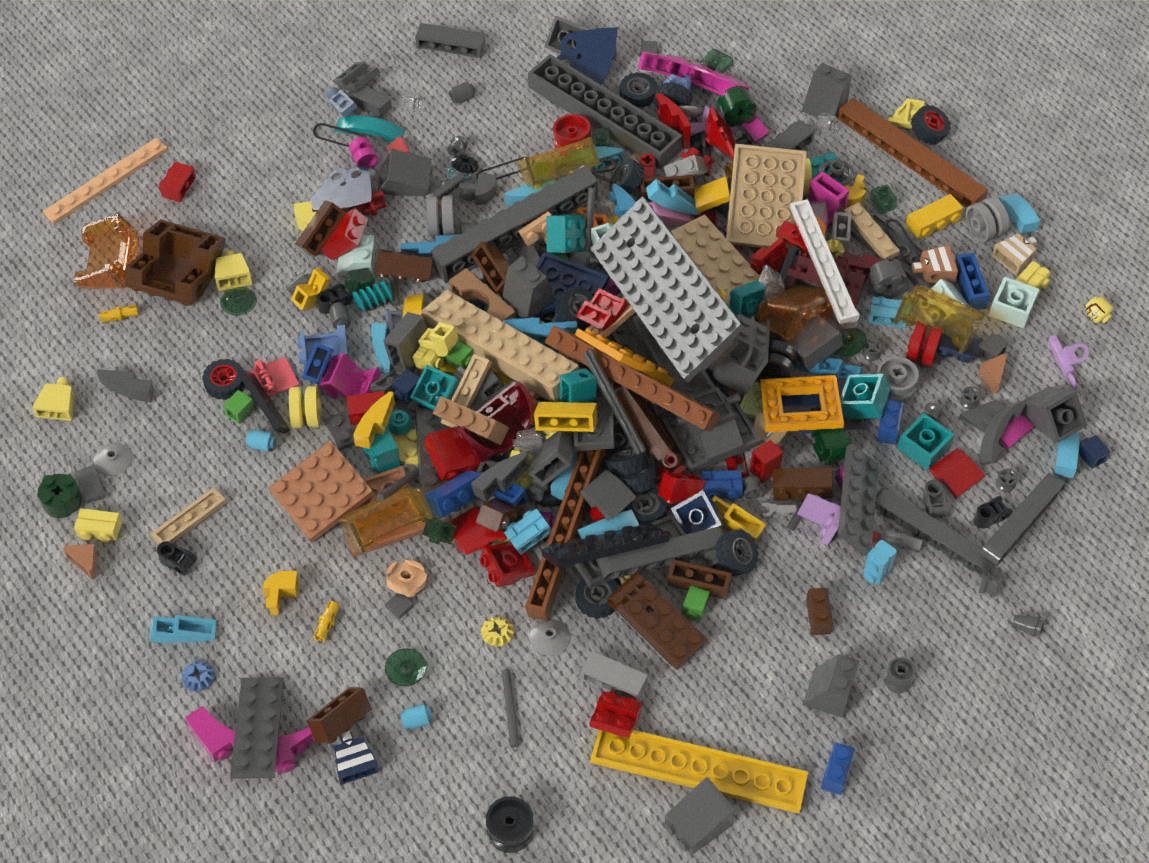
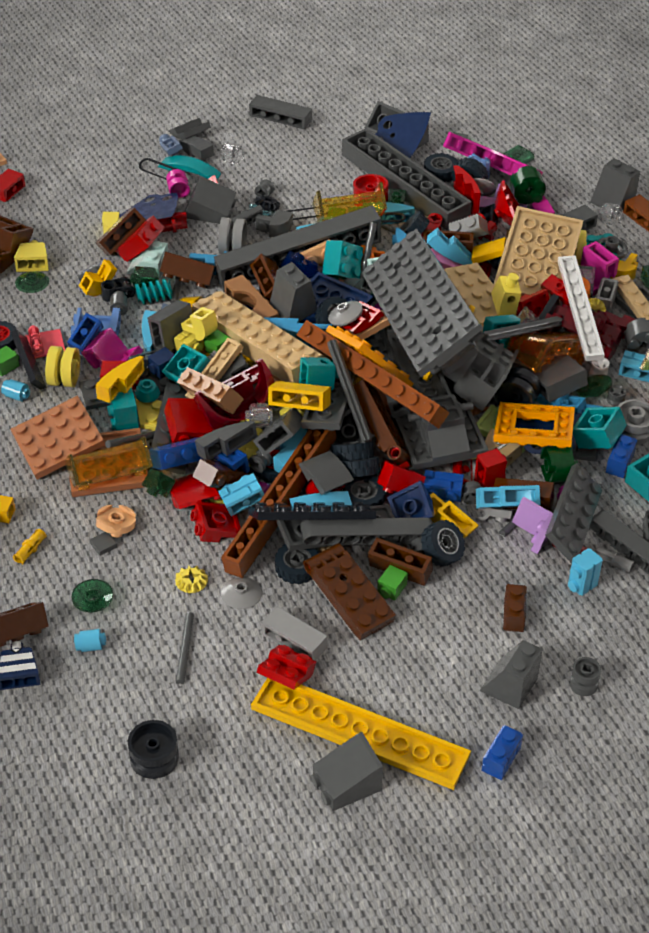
camera: 10 degrees right, 10 degrees down
(462, 92) = (280, 150): dark grey brick -> none
(523, 246) = (309, 268): none -> clear blue slope
(588, 307) = (345, 313): none -> light grey dish
(745, 255) = (506, 294): none -> light yellow torso
(770, 296) = (521, 329): none -> dark grey axle
(789, 491) = (505, 496): none -> medium azure slope

